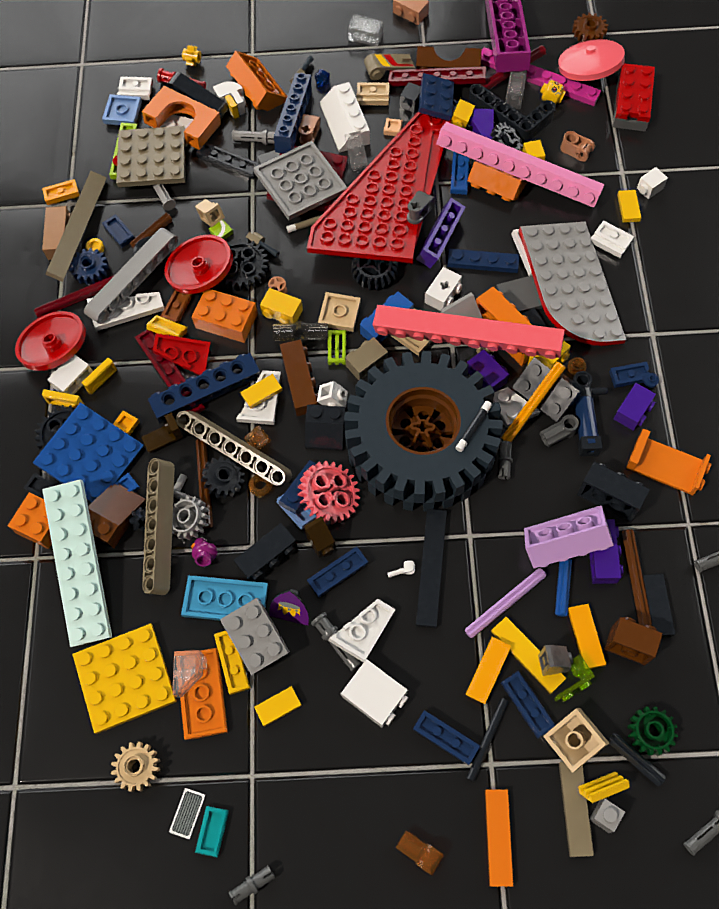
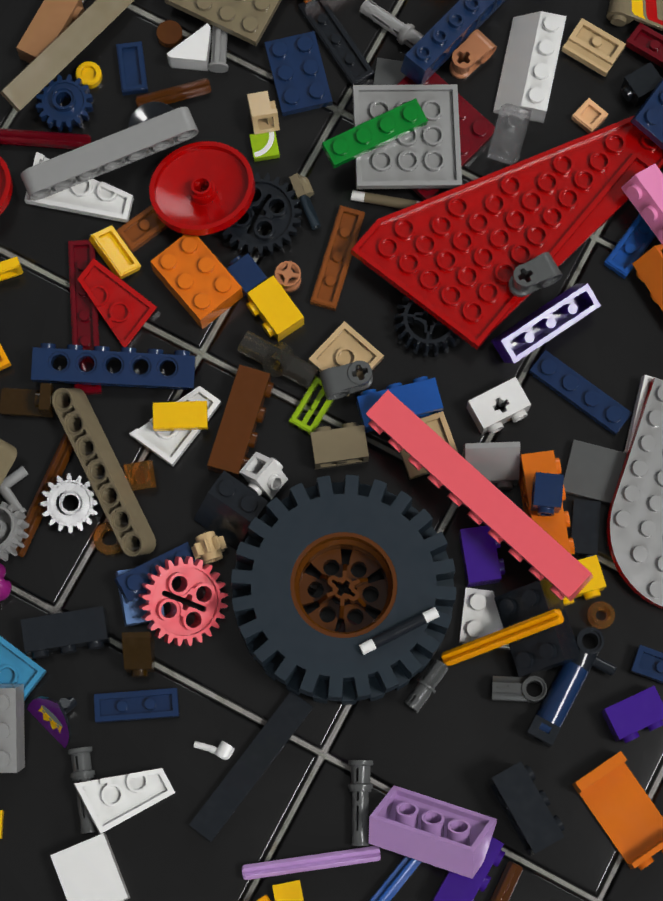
camera: 25 degrees right, 10 degrees up
(130, 203) = (169, 33): none -> reddish brown tile
(149, 204) = (193, 51): none -> white slope
(217, 186) = (298, 73): none -> dark blue plate
(253, 294) = (246, 273): none -> dark blue brick
(281, 184) = (374, 133): none -> green plate
(300, 265) = (337, 258): none -> dark orange tile
(325, 453) = (209, 547): none -> tan gear
(347, 318) = (343, 379): none -> dark grey piece
(503, 541) = (360, 788): none -> dark grey pin
(506, 306) = (547, 493): none -> dark blue brick

